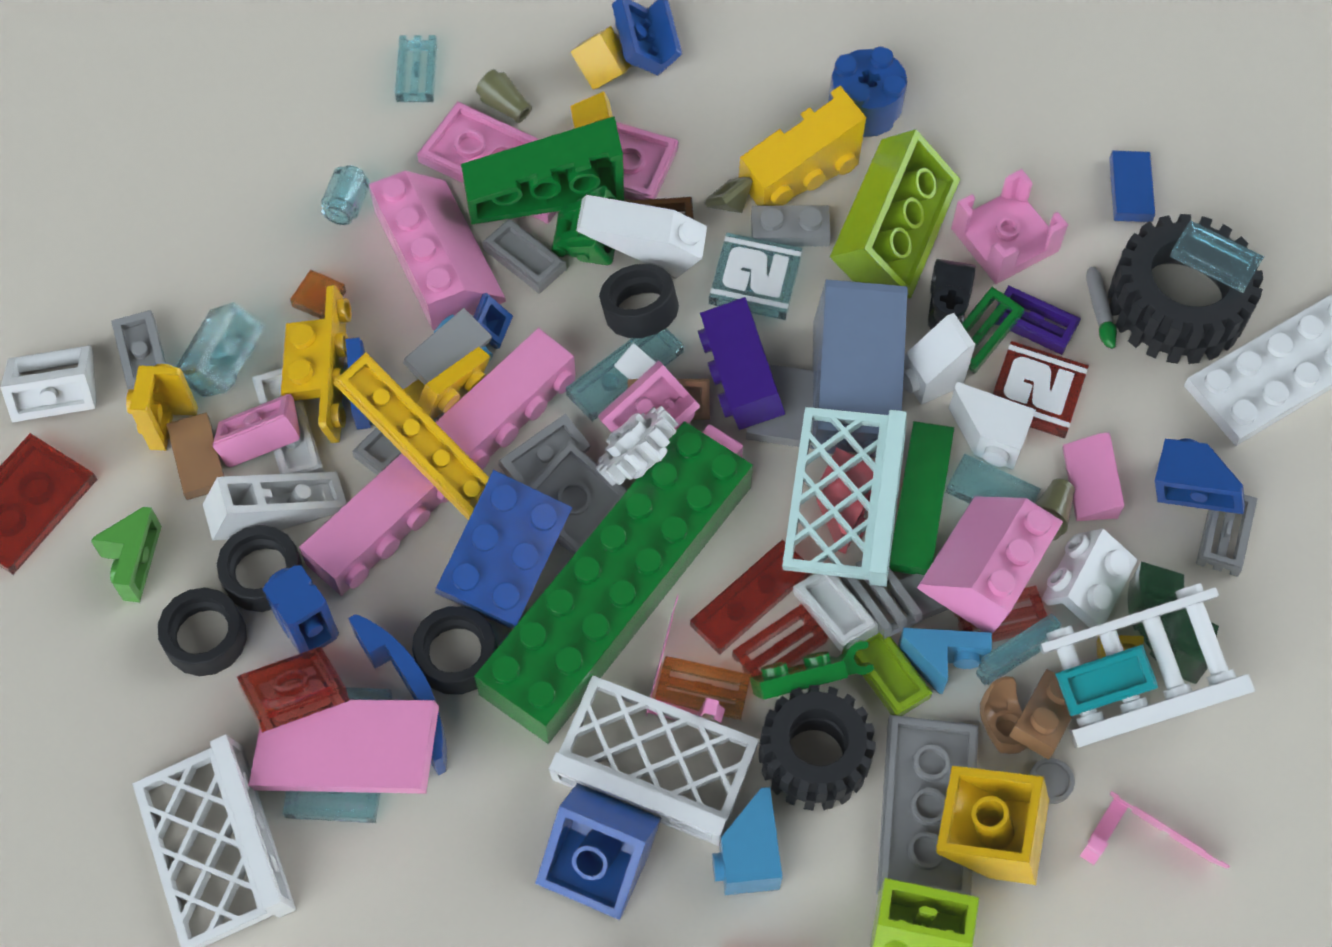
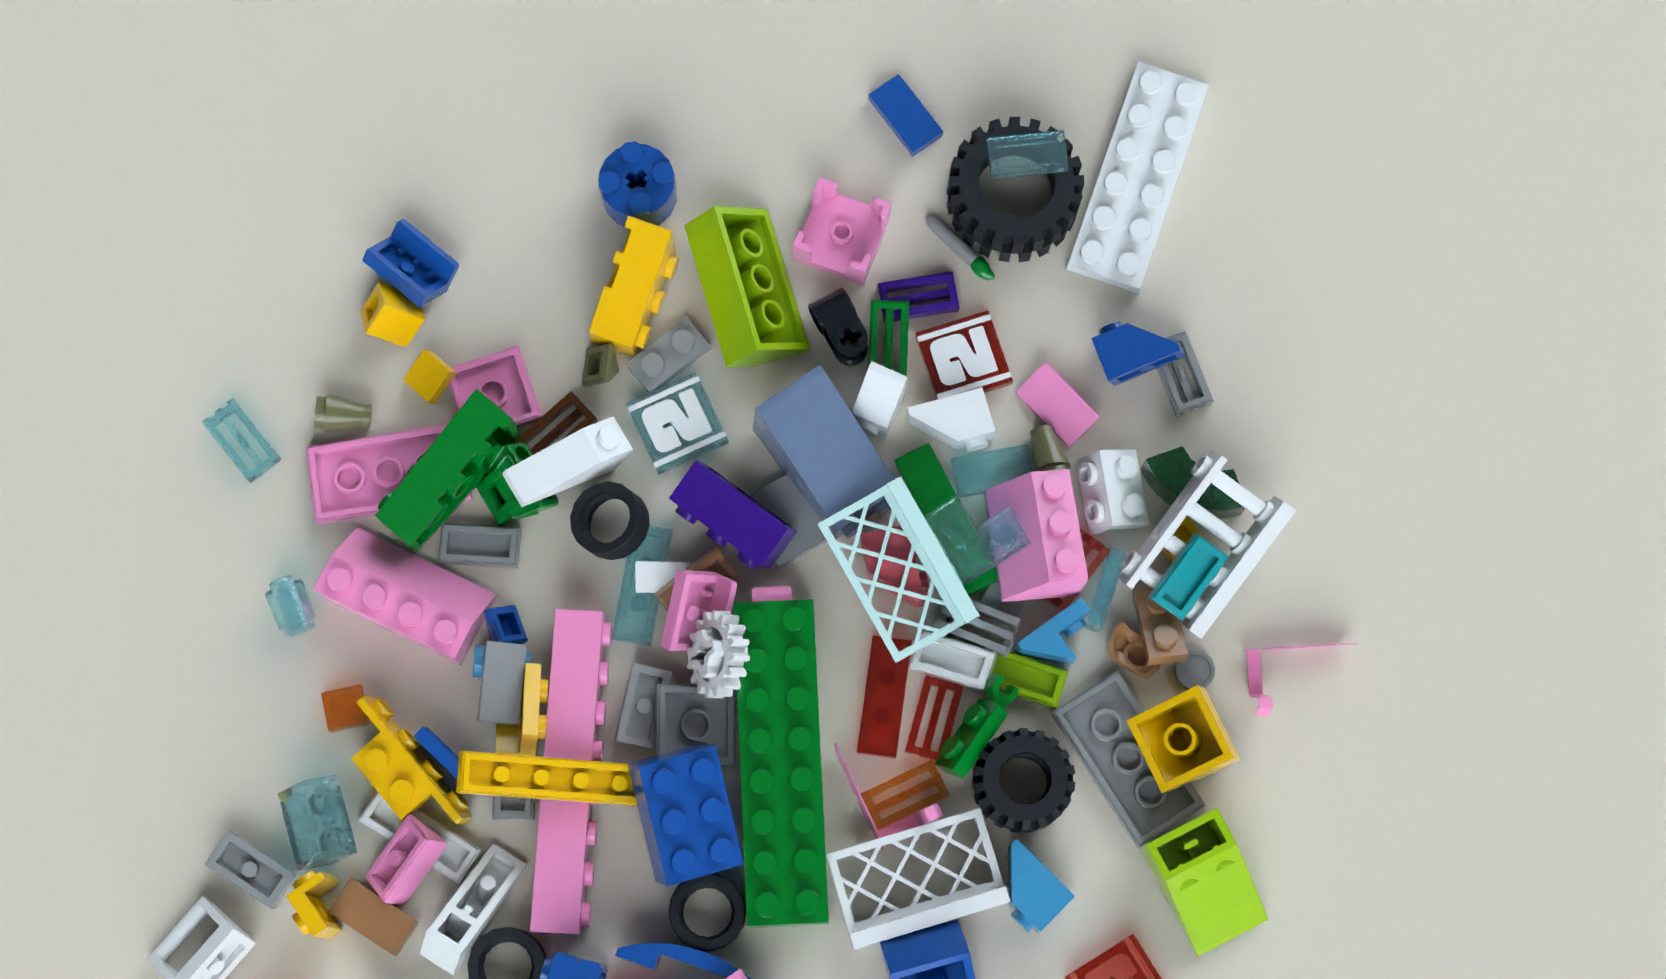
camera: 40 degrees left, 15 degrees up
(927, 524) = (974, 548): none -> clear light blue plate

